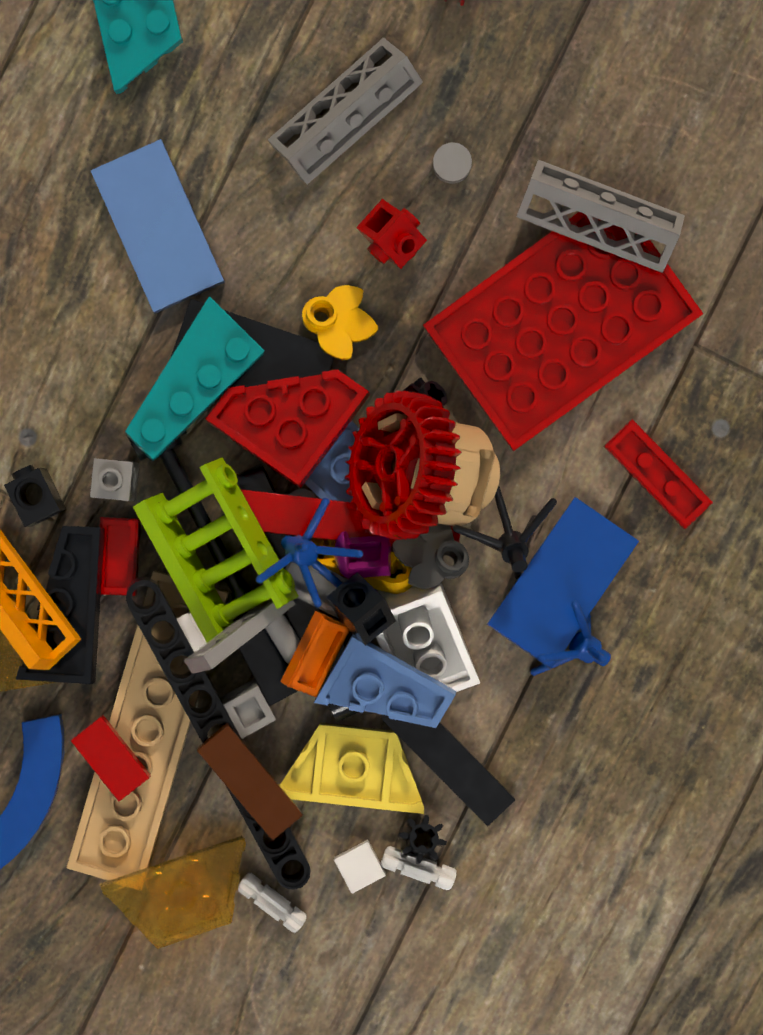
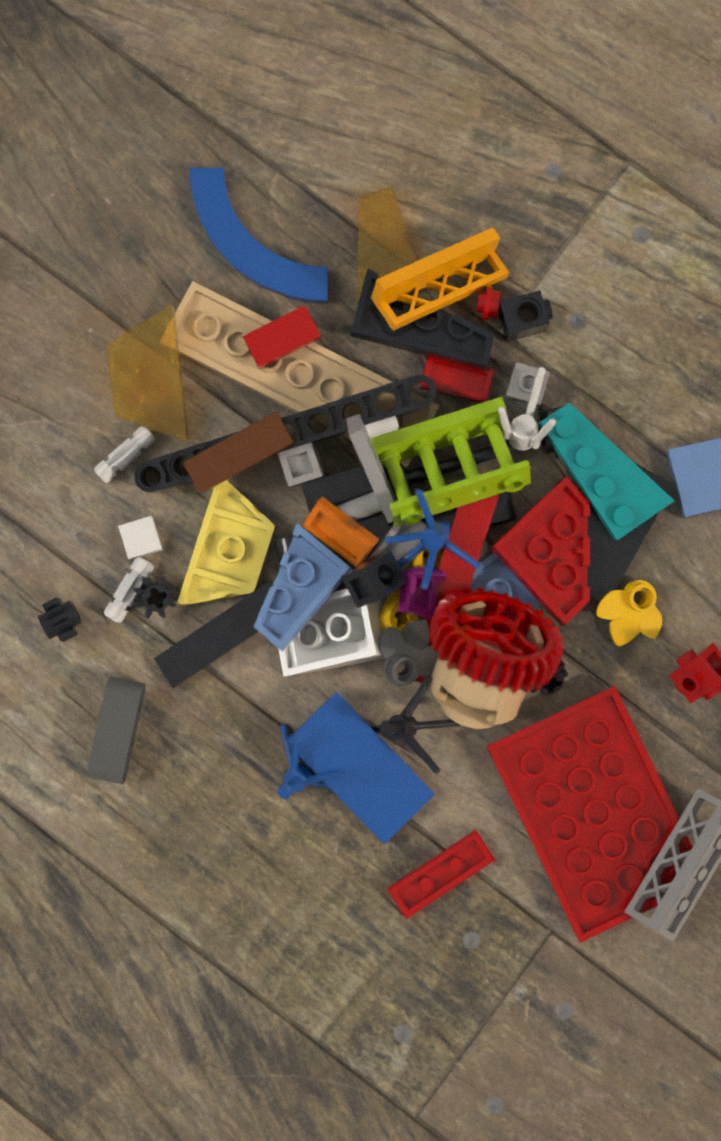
camera: 100 degrees right, 5 degrees down
(28, 538) = (488, 303): none -> red plate
(163, 474) = (524, 429): none -> white plant
(465, 936) = (60, 619): none -> black gear
(572, 850) = (116, 730): none -> dark grey beam

